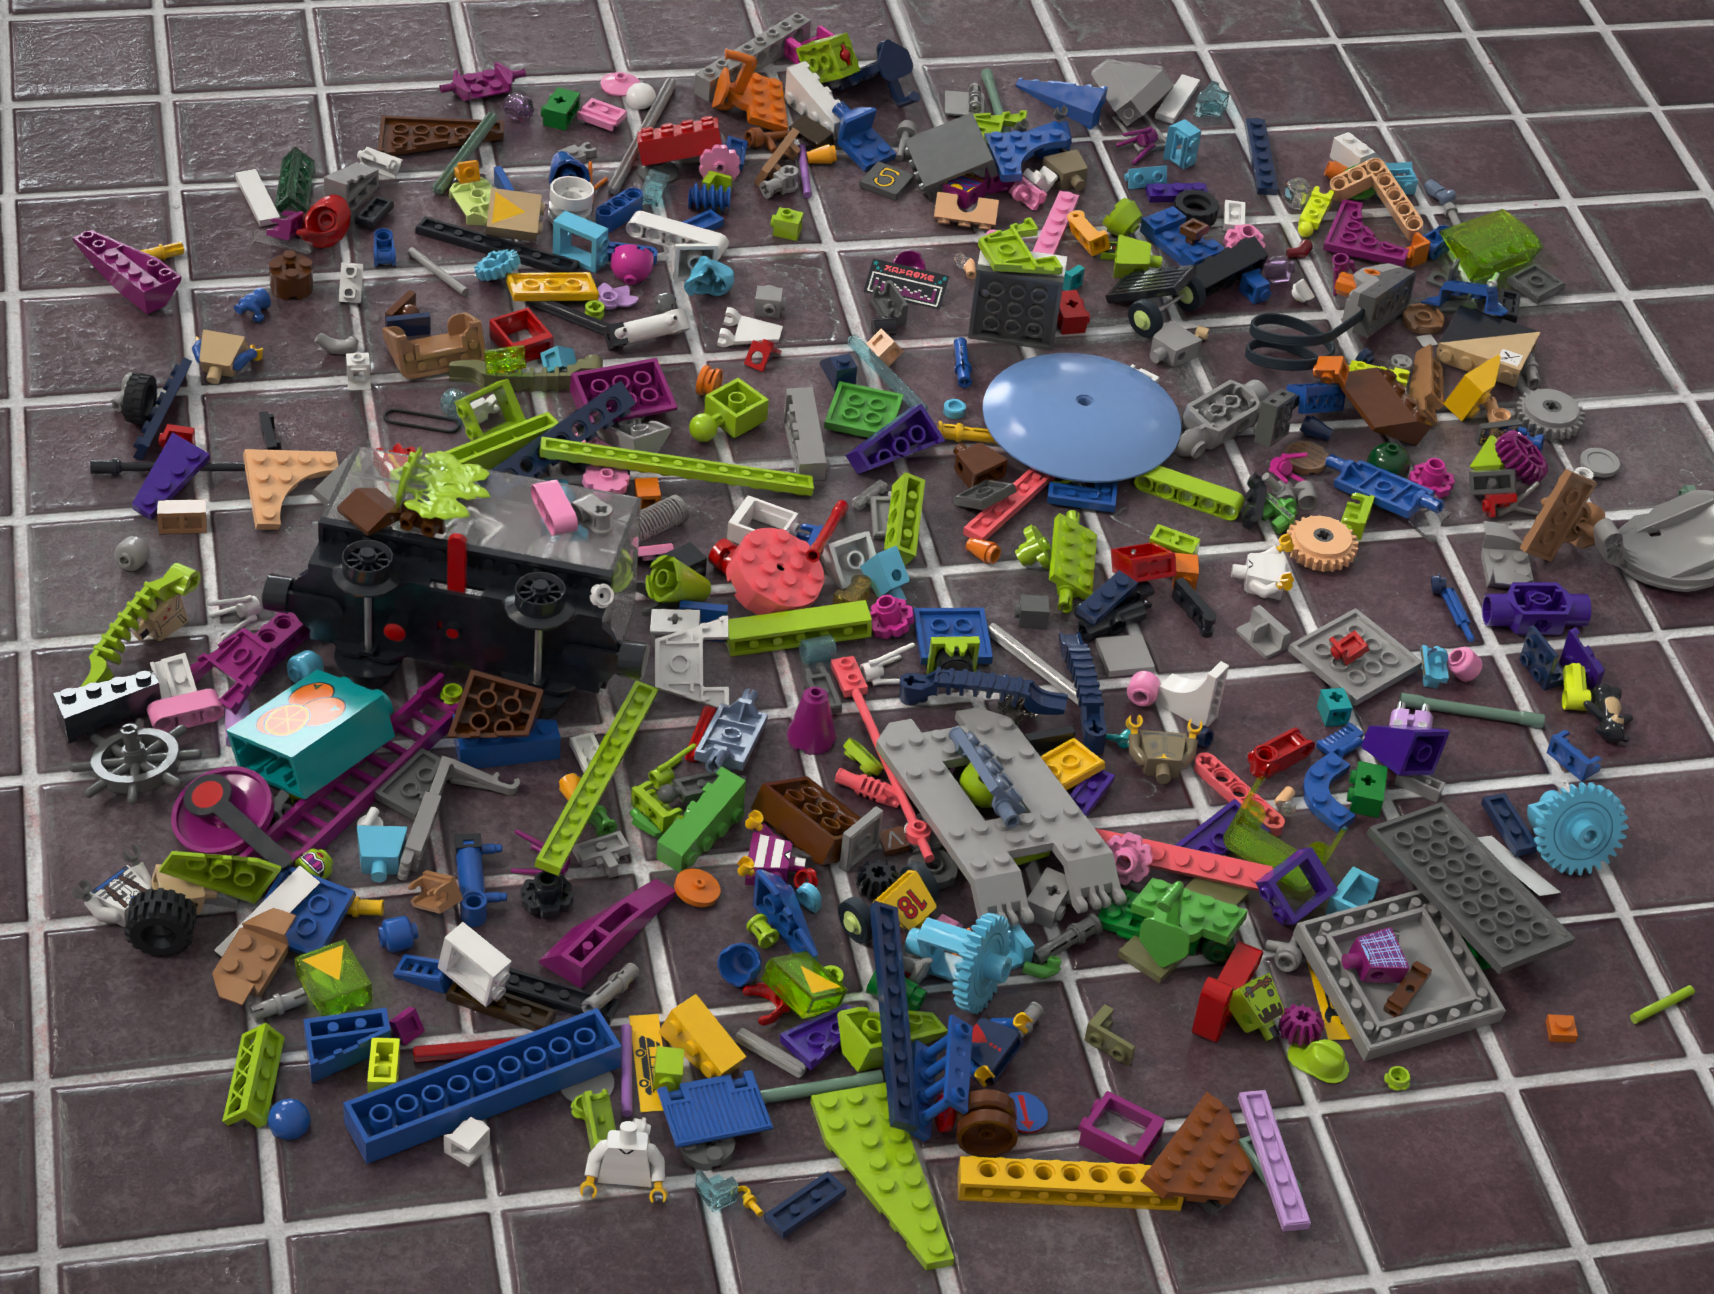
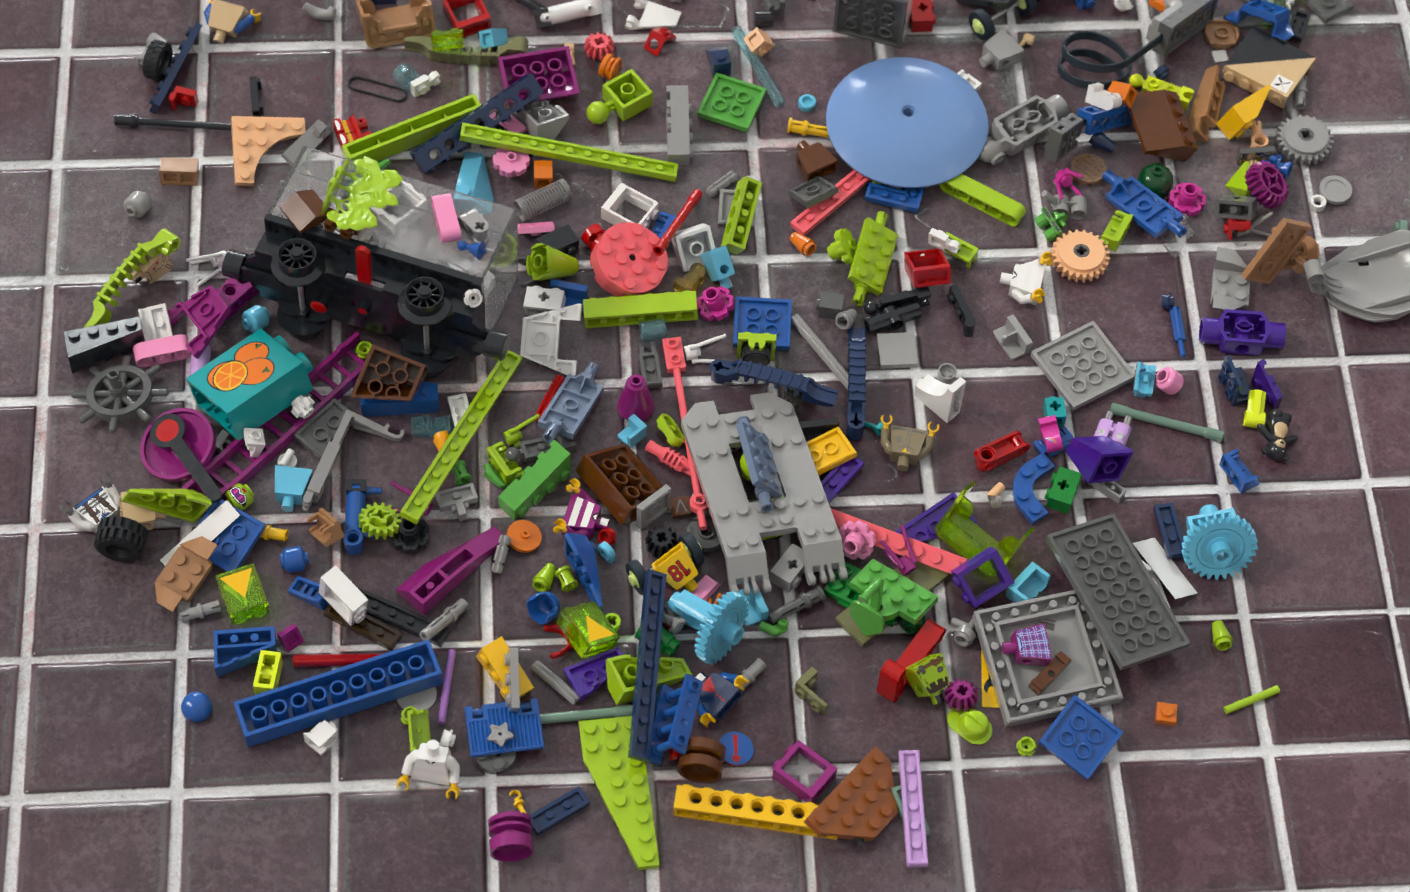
camera: 10 degrees right, 15 degrees up
(170, 473) = (173, 132): dark purple wing -> none
(259, 1076) = (178, 670): lime fence -> none
(326, 799) = (254, 441): none -> white bracket
(358, 371) = (332, 40): white window -> none
(384, 755) = (302, 407): none -> white gear
(506, 878) = (379, 520): none -> lime gear
(508, 404) = (445, 83): lime window -> none
(545, 774) = (426, 426): none -> clear light blue slope
(599, 537) = (476, 249): none -> blue piece
(645, 1042) = (464, 679): yellow sticker -> none
(668, 1068) = (476, 690): lime brick -> none
(671, 908) = (500, 554): none -> light grey axle
(689, 361) = (598, 46): none -> coral gear
(709, 1121) = (500, 740): none -> light grey plate
(716, 1191) = (495, 793): clear light blue panel -> none
(719, 1045) = (512, 680): none -> light grey plate
(733, 931) = (544, 578): none -> lime cone
(749, 1237) = (510, 836): none -> magenta wheel
(818, 761) = (634, 432): none -> medium azure panel
(901, 437) = (750, 136): dark purple wedge -> none
(964, 376) = (820, 69): blue pin -> none
(1051, 626) = (845, 319): none -> light grey cone
(1106, 598) = (889, 300): dark blue plate -> none
(1143, 688) = (903, 384): bright pink head -> none
(1154, 531) = (941, 240): none -> white plate
(1188, 568) = (962, 275): orange brick -> none
(1194, 670) = (947, 373): none -> light grey wheel
(1195, 880) = (904, 564): none -> magenta plant
(1205, 737) = (944, 431): dark blue plate -> none
(1209, 768) = (958, 476): coral beam -> none
(1254, 501) = (1033, 212): black hinge -> none
(1307, 375) = (1102, 98): none -> white leg
(1336, 728) = (1050, 433): none -> dark pink leg
(1348, 648) = (1075, 361): red bracket -> none
(1400, 361) = (1189, 80): light grey wheel -> none
(1465, 1060) = (1080, 737): none -> blue plate
(1605, 935) = (1221, 637): none -> lime cone

